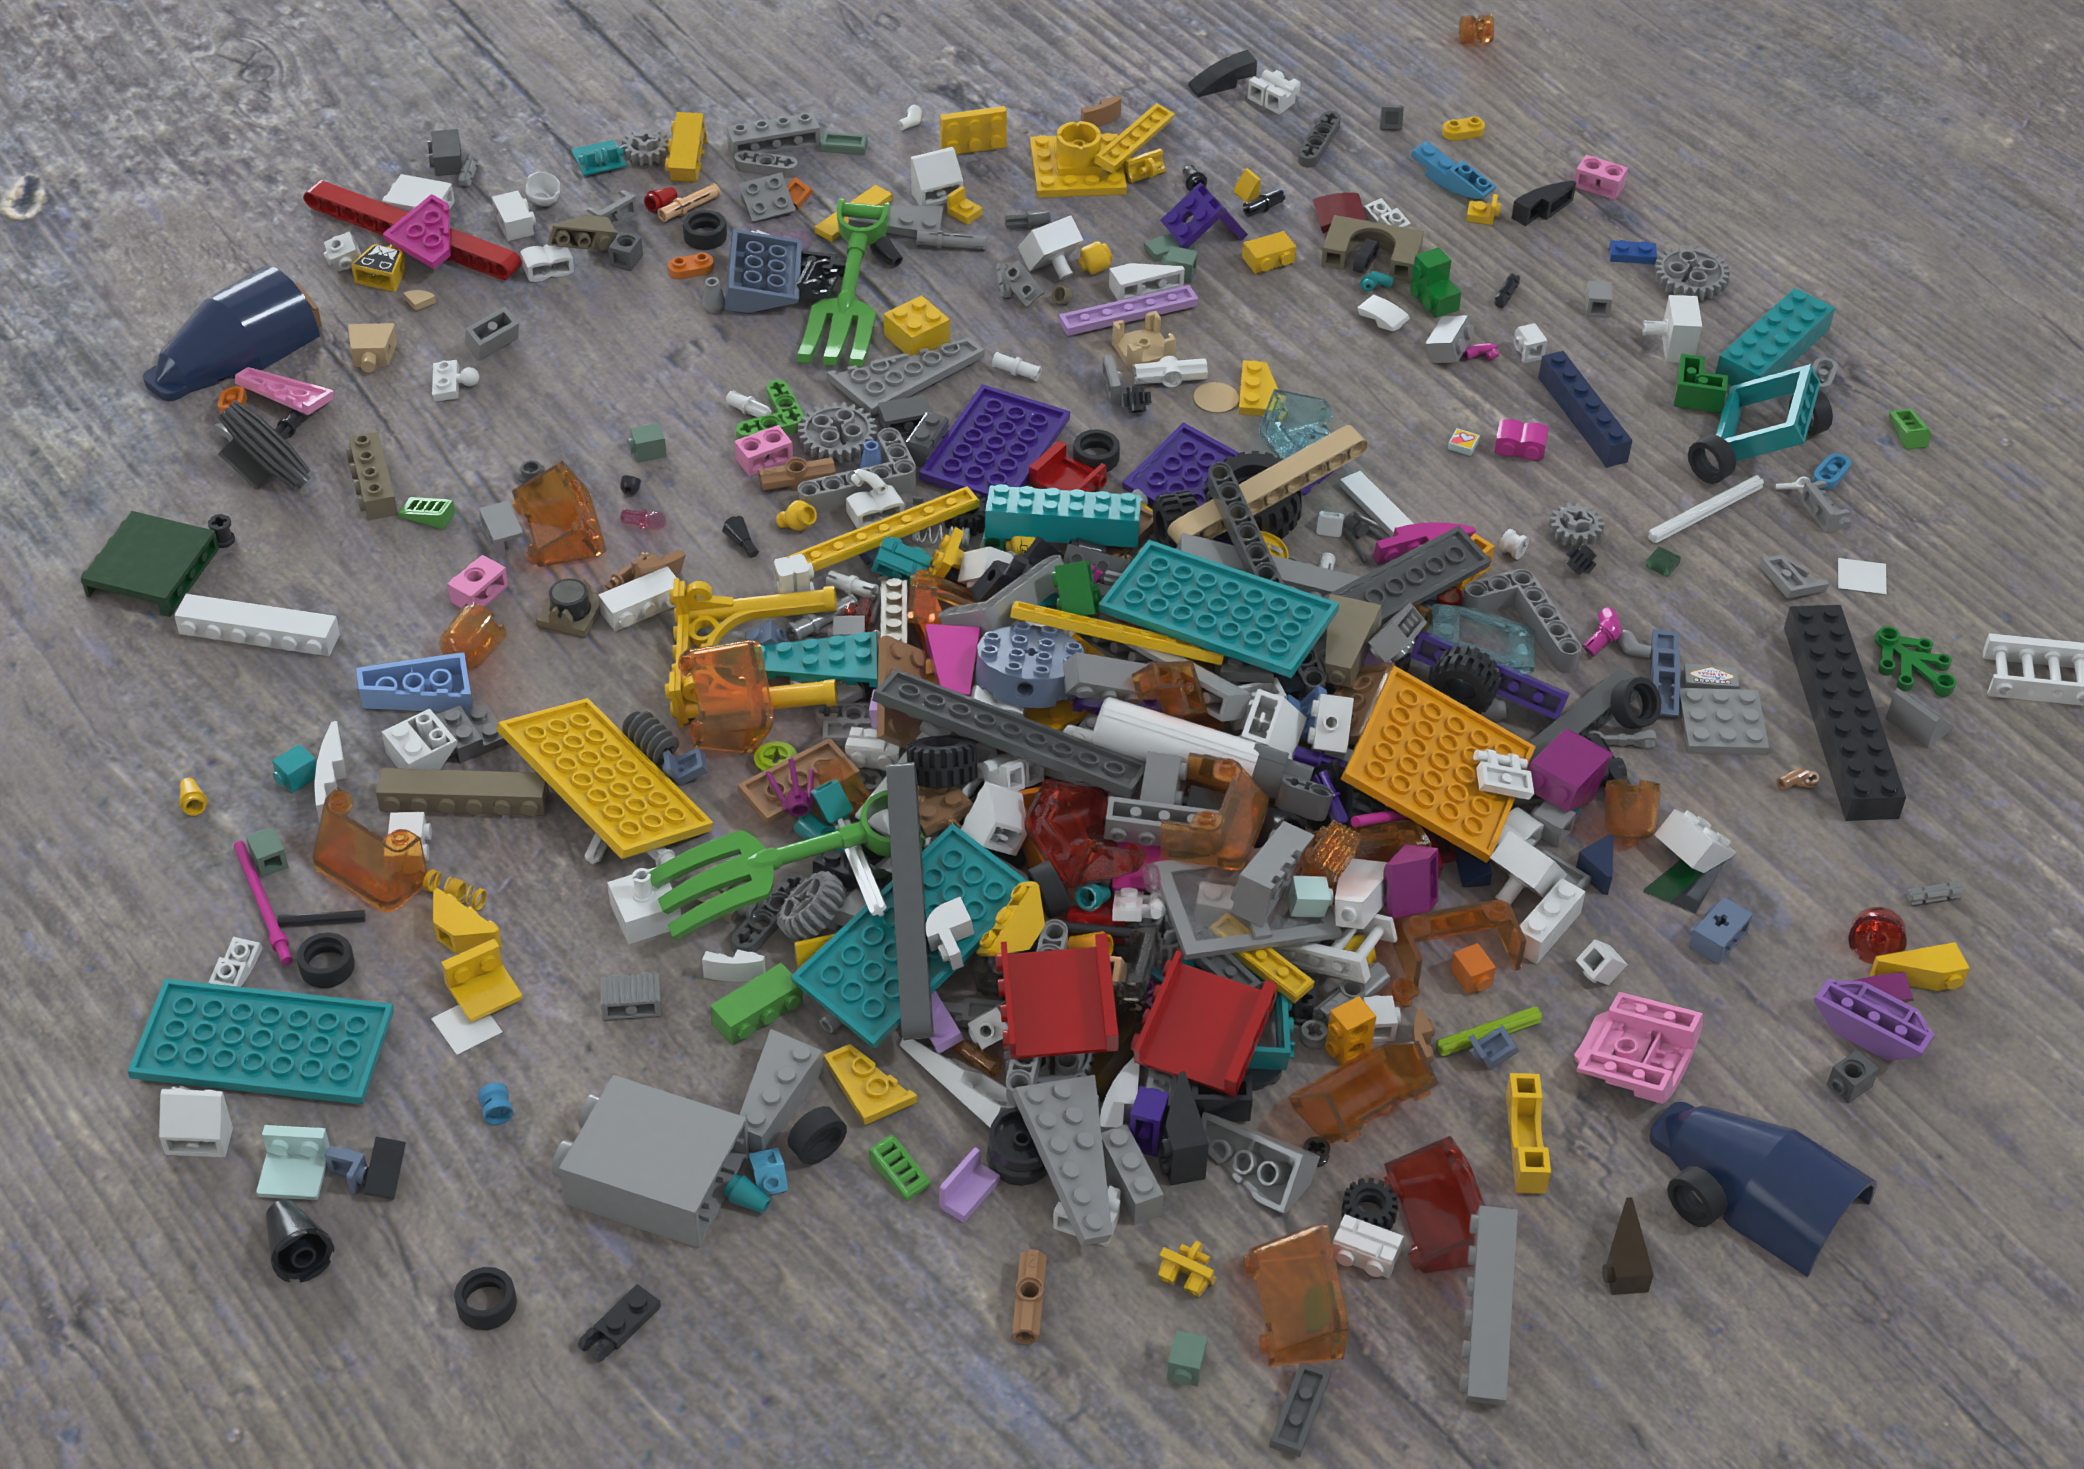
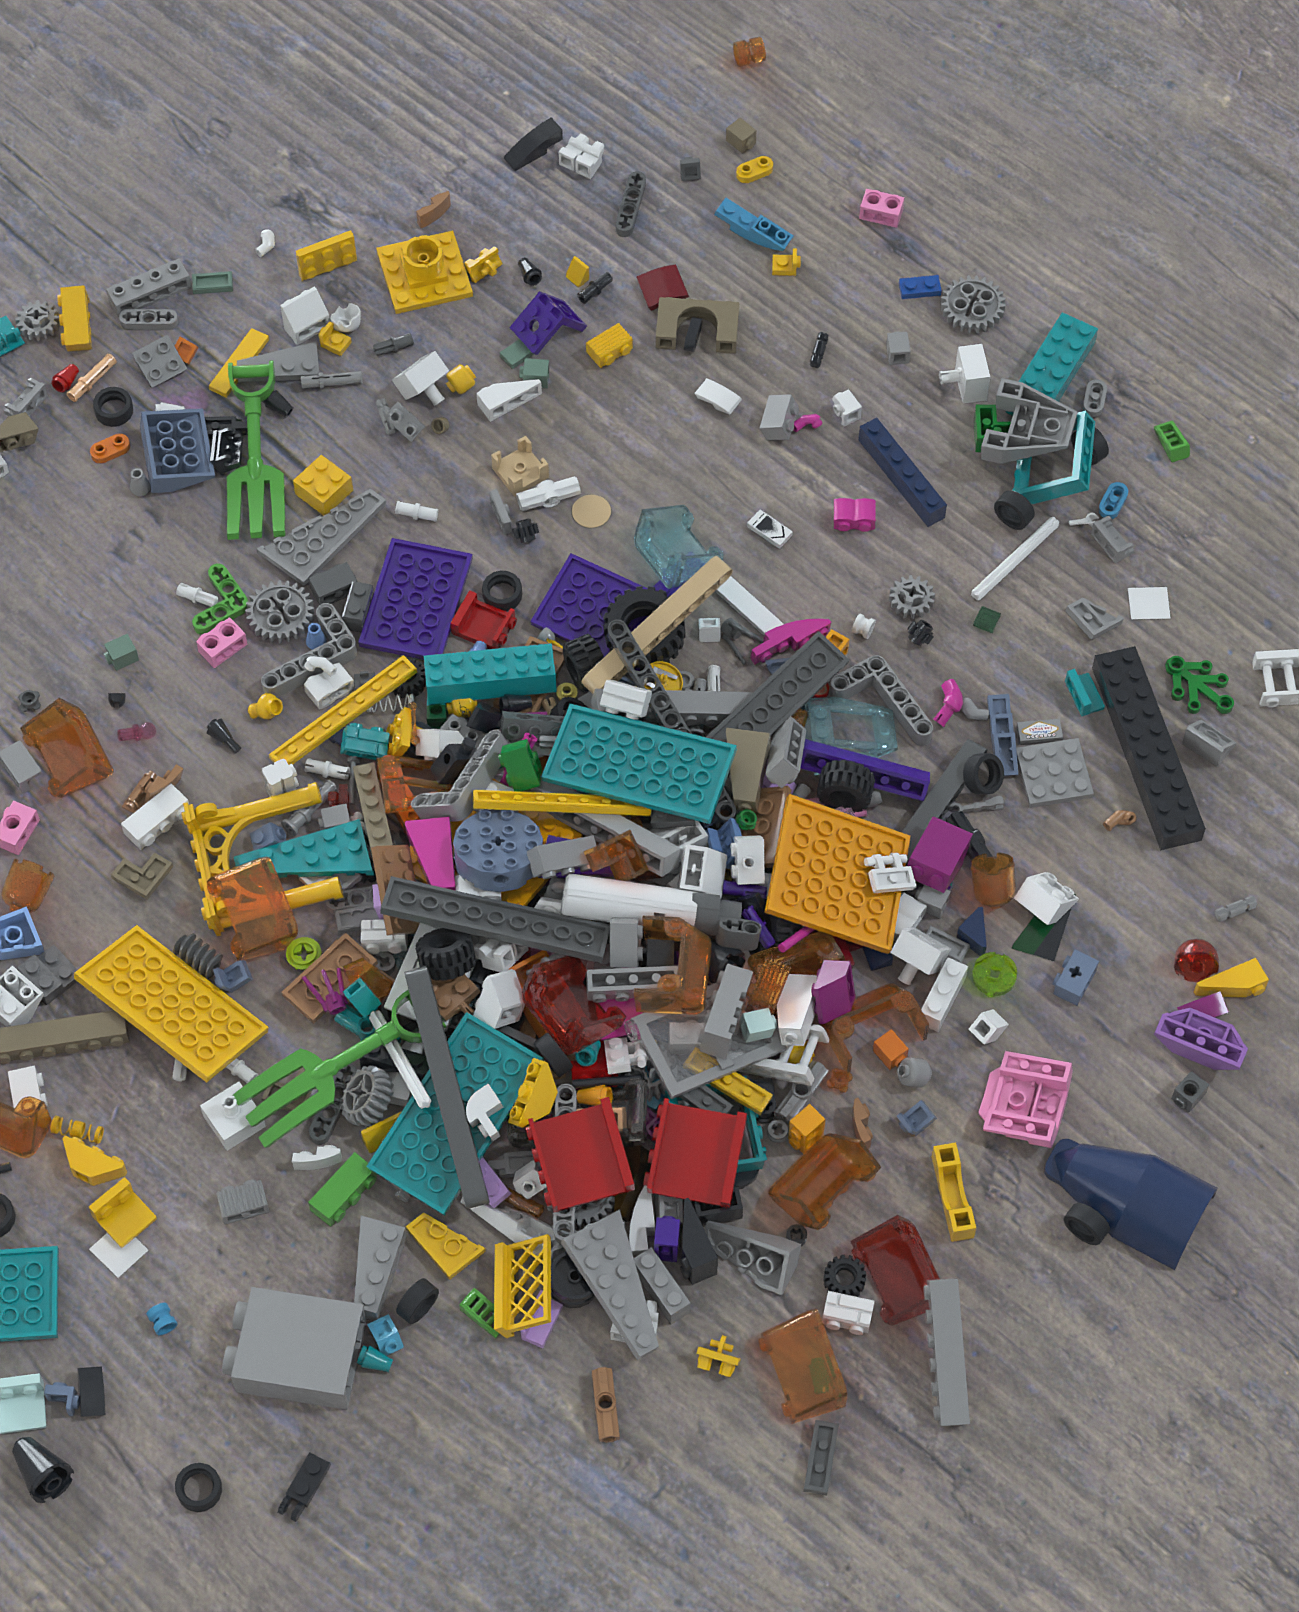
camera: 10 degrees left, 15 degrees up
(567, 604) = (98, 833): piece -> none
(609, 657) = (143, 880): none -> dark tan plate
(625, 251) = (49, 444): dark grey brick -> none
(794, 473) = (266, 657): medium nougat piece -> none
(933, 1138) = (506, 1288): none -> yellow fence
(960, 561) = (415, 739): none -> clear orange hinge
(982, 192) = (346, 319): none -> white hair
(1127, 310) = (500, 431): lavender plate -> none
(1133, 138) = (469, 237): yellow plate -> none
(1186, 1358) = (731, 1433): sand green brick -> none
(1215, 541) = (625, 698): none -> white brick
(1256, 388) = (625, 497): yellow wing -> none
(1337, 688) = (749, 816): none -> green plate
(1375, 278) = (704, 358): teal arm -> none
(1381, 213) = (702, 285): white slope -> none
(1387, 1017) = (828, 1106): white brick -> none
(1419, 441) = (769, 529): none -> white tile
(1432, 283) = (756, 361): green brick -> none
(1453, 96) = (741, 135): none -> dark tan brick
(1463, 442) = (806, 523): tile -> none
(1498, 995) = (914, 1072): none -> light grey head
(1511, 1023) = (906, 1104): lime axle -> none
(1543, 202) = (836, 246): black slope -> none
(1613, 924) = (994, 986): none -> clear neon green plate
(1628, 1262) = (1042, 1288): dark brown slope -> none
(1747, 375) = (1036, 426): none -> light grey wedge
(1770, 647) = (1084, 692): none -> teal panel

